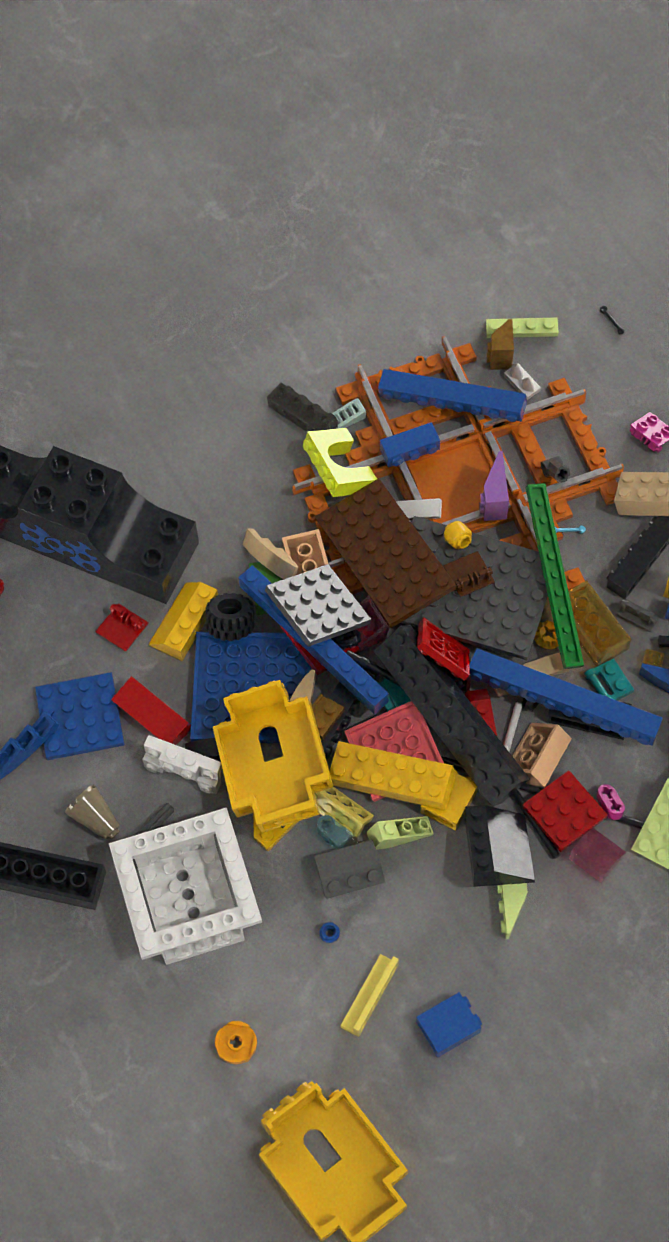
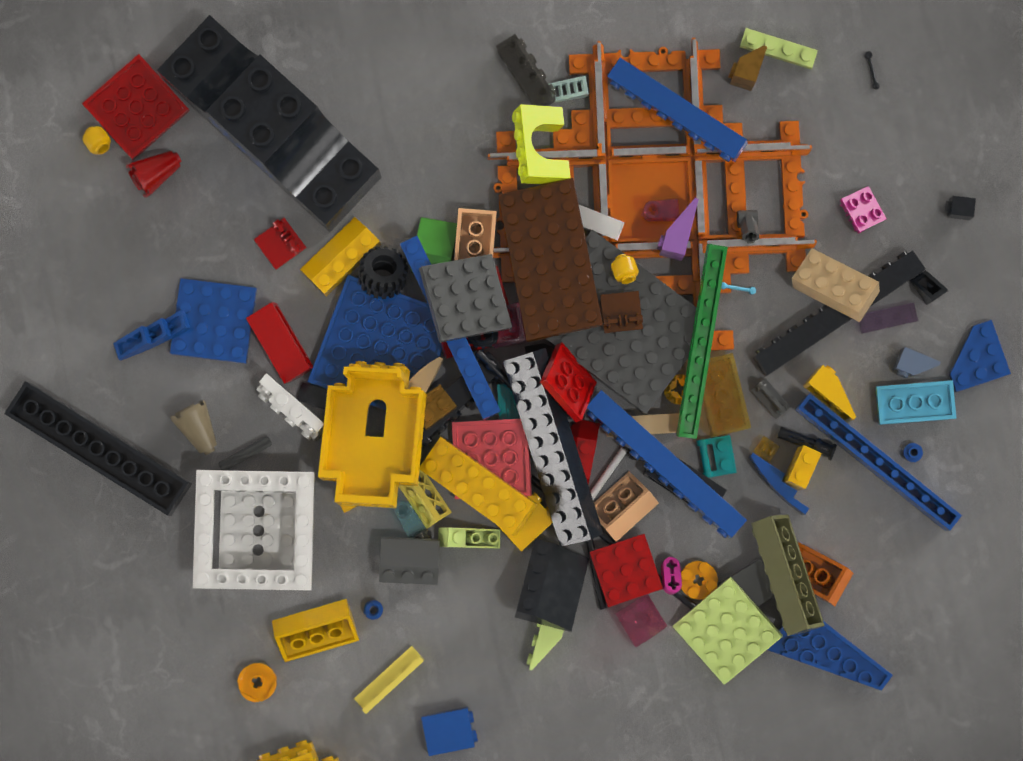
camera: 15 degrees right, 20 degrees up
(268, 555) = (442, 225): tan slope -> none
(278, 971) = (315, 630): none -> yellow slope
(410, 445) = (615, 152): blue brick -> none
(470, 482) = (664, 210): none -> clear pink piece
(522, 381) = (755, 110): white tile -> none
(640, 788) = (704, 570): none -> light orange plate

